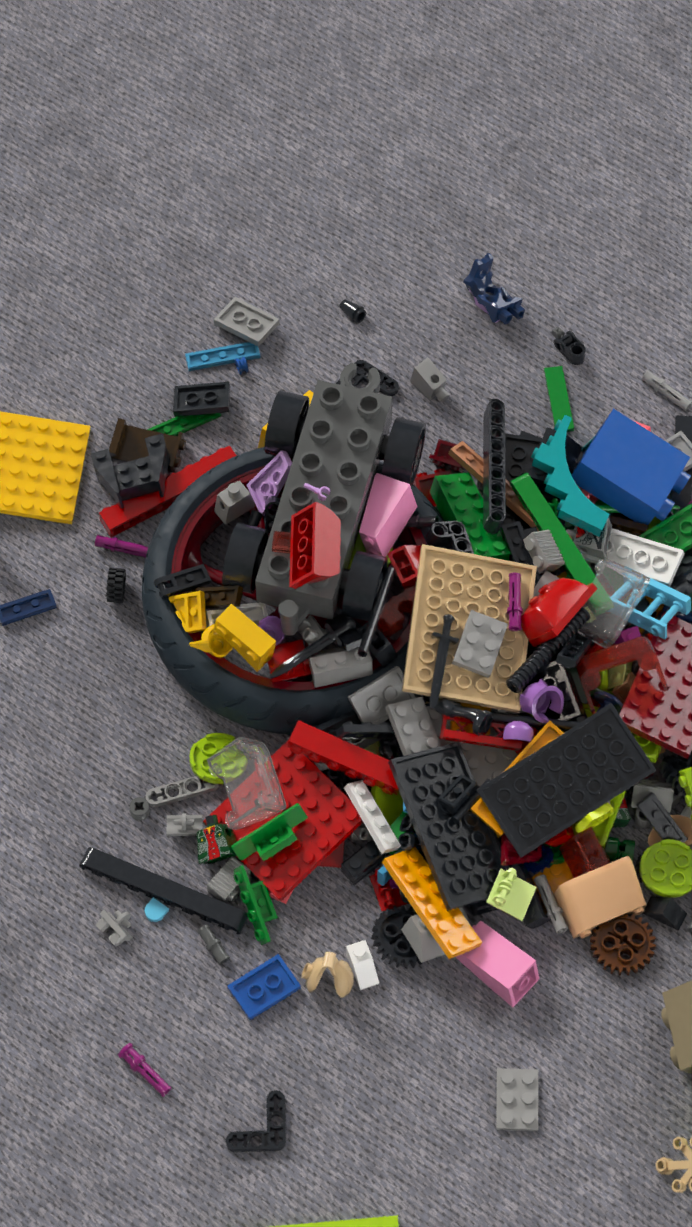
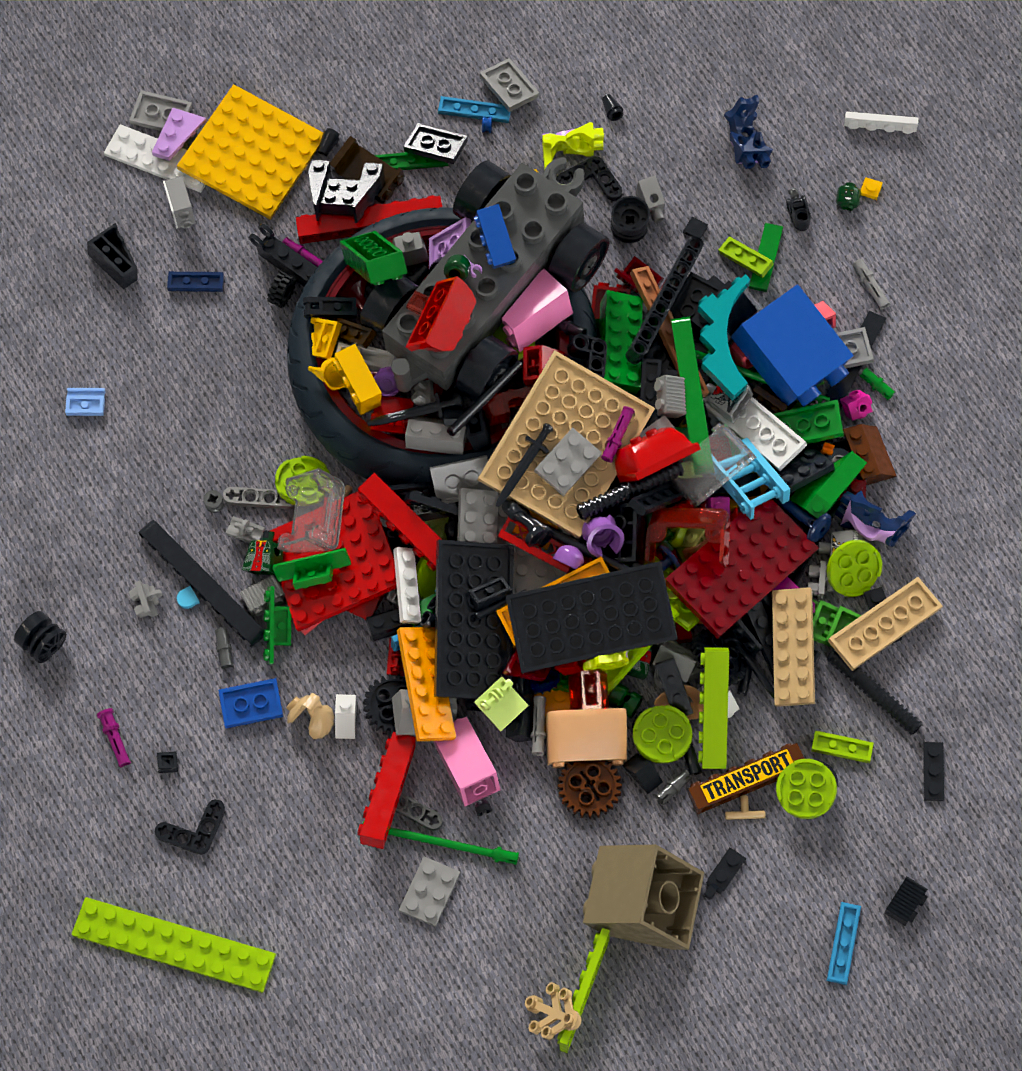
camera: 25 degrees right, 5 degrees up
(26, 998) = (40, 636): none -> black wheel
(95, 431) = (328, 141): none -> black cone
(105, 554) = (282, 256): none -> black hinge
(207, 1074) = (167, 762): none -> black tile
(213, 517) = (374, 257): none -> green brick
(305, 494) = (457, 266): none -> dark green head
(329, 454) = (494, 236): none -> blue wedge
(332, 353) = (574, 141): none -> neon yellow hips
(423, 398) = (629, 210): none -> black wheel
(437, 1019) = (387, 790): none -> red brick
(460, 1024) = (410, 804): none -> dark grey beam
(481, 395) = (695, 228): none -> black tile
(533, 999) = (482, 807): none -> black hinge
(541, 404) = (746, 257): none -> lime plate
(566, 1039) = (497, 854): none -> green bar
(607, 241) = (877, 121): none -> white plate
(609, 318) = (848, 196): none -> dark green head
(625, 304) = (871, 188): none -> yellow plate

